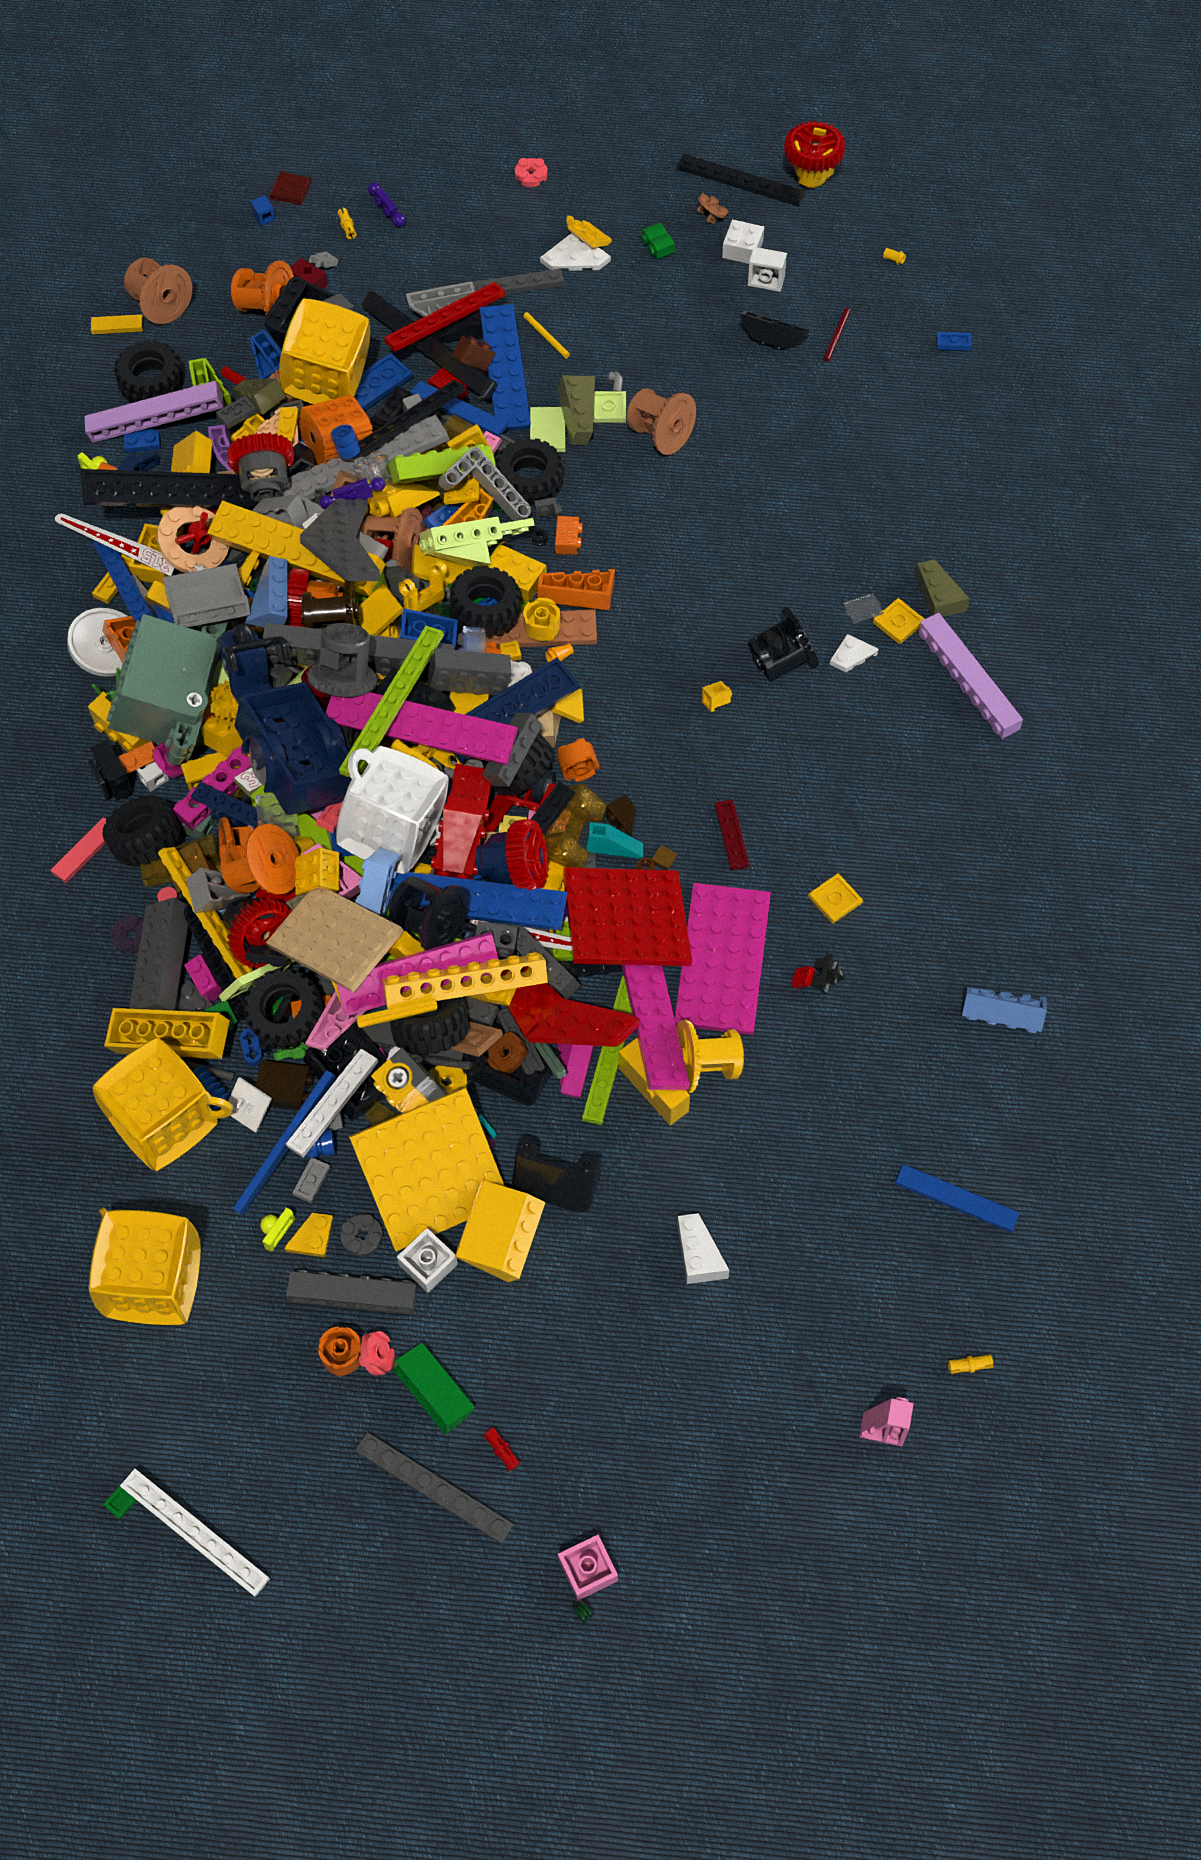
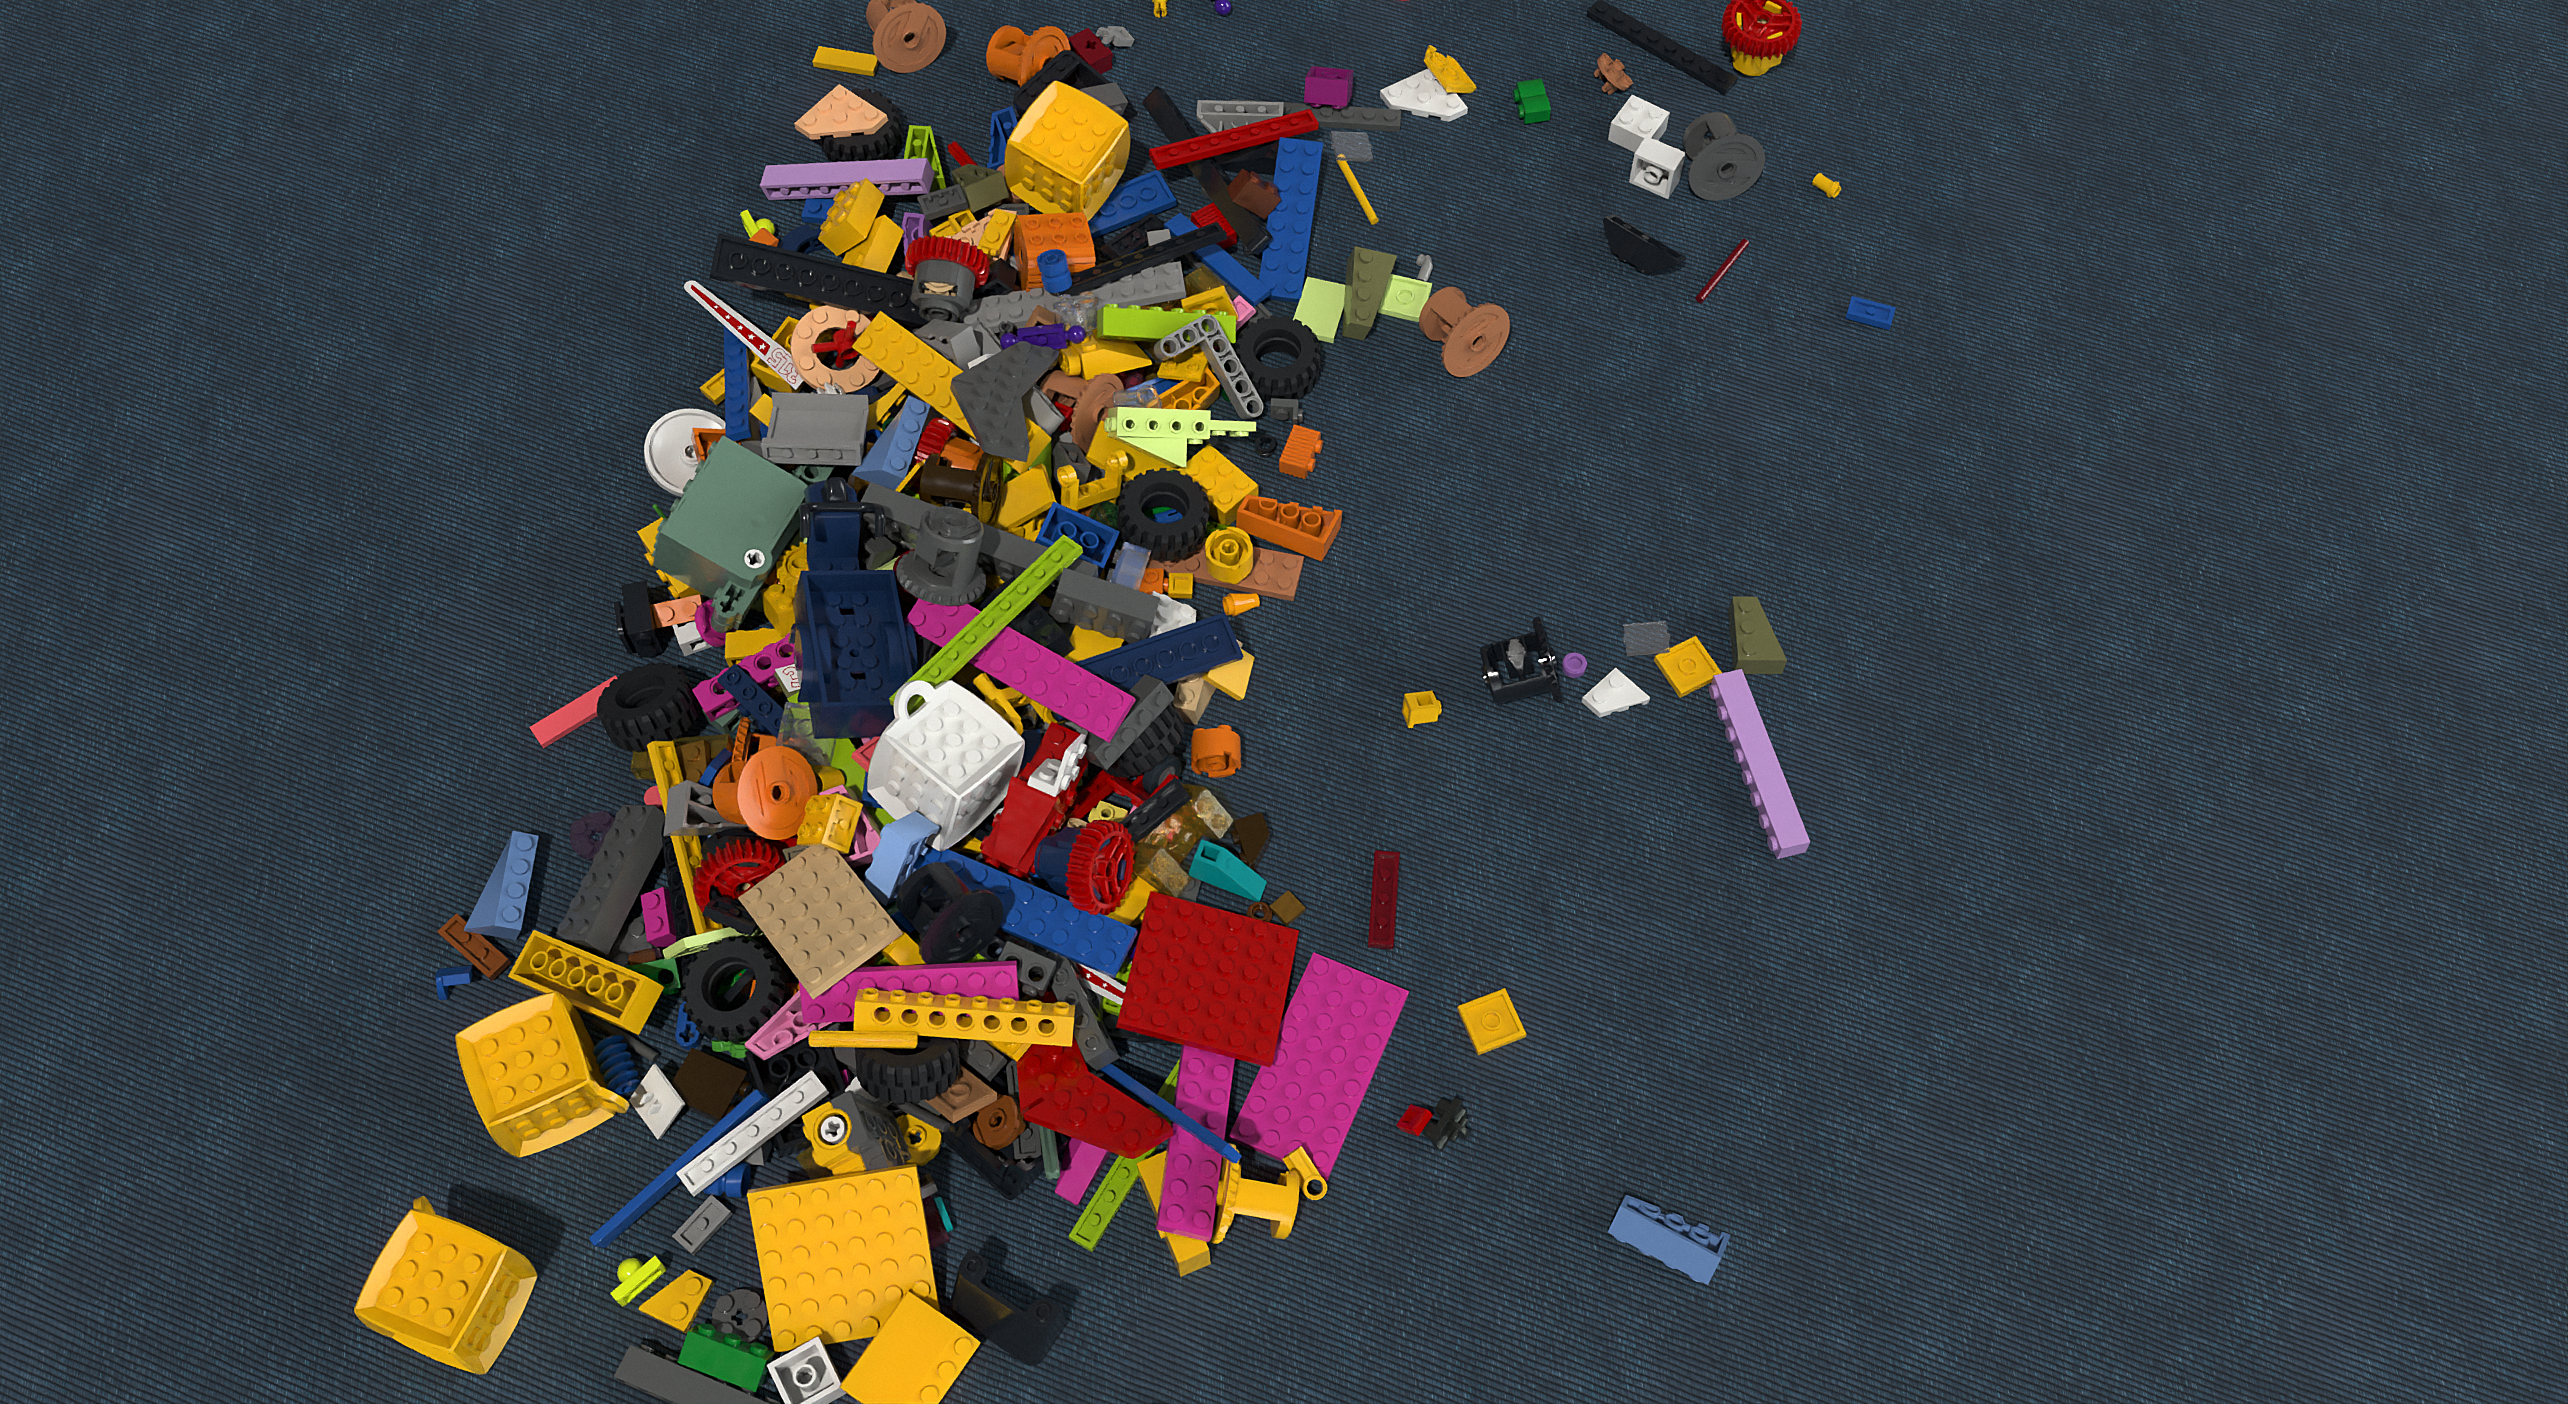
camera: 15 degrees right, 0 degrees up
(58, 1059) = (452, 976): none -> blue tile
(67, 1034) = (474, 947): none -> dark orange plate
(79, 990) = (505, 894): none -> medium blue wedge
(134, 364) = (840, 115): none -> light nougat plate
(168, 438) = (851, 216): none -> yellow brick
(201, 1006) = (642, 956): none -> reddish brown tile
(215, 857) = (714, 767): none -> blue plate
(293, 612) = (911, 478): none -> yellow piece
(363, 1261) = (726, 1356): none -> green brick
(437, 520) = (1142, 398): none -> clear piece
(474, 800) = (1056, 775): none -> white bracket
(502, 262) = (1328, 86): none -> magenta brick
(531, 304) = (1351, 146): none -> clear piece
(637, 1009) = (1172, 1113): none -> blue tile
(732, 1022) = (1301, 1163): none -> yellow piece
(808, 249) = (1712, 157): none -> dark grey piece
(817, 639) = (1574, 665): none -> medium lavender tile

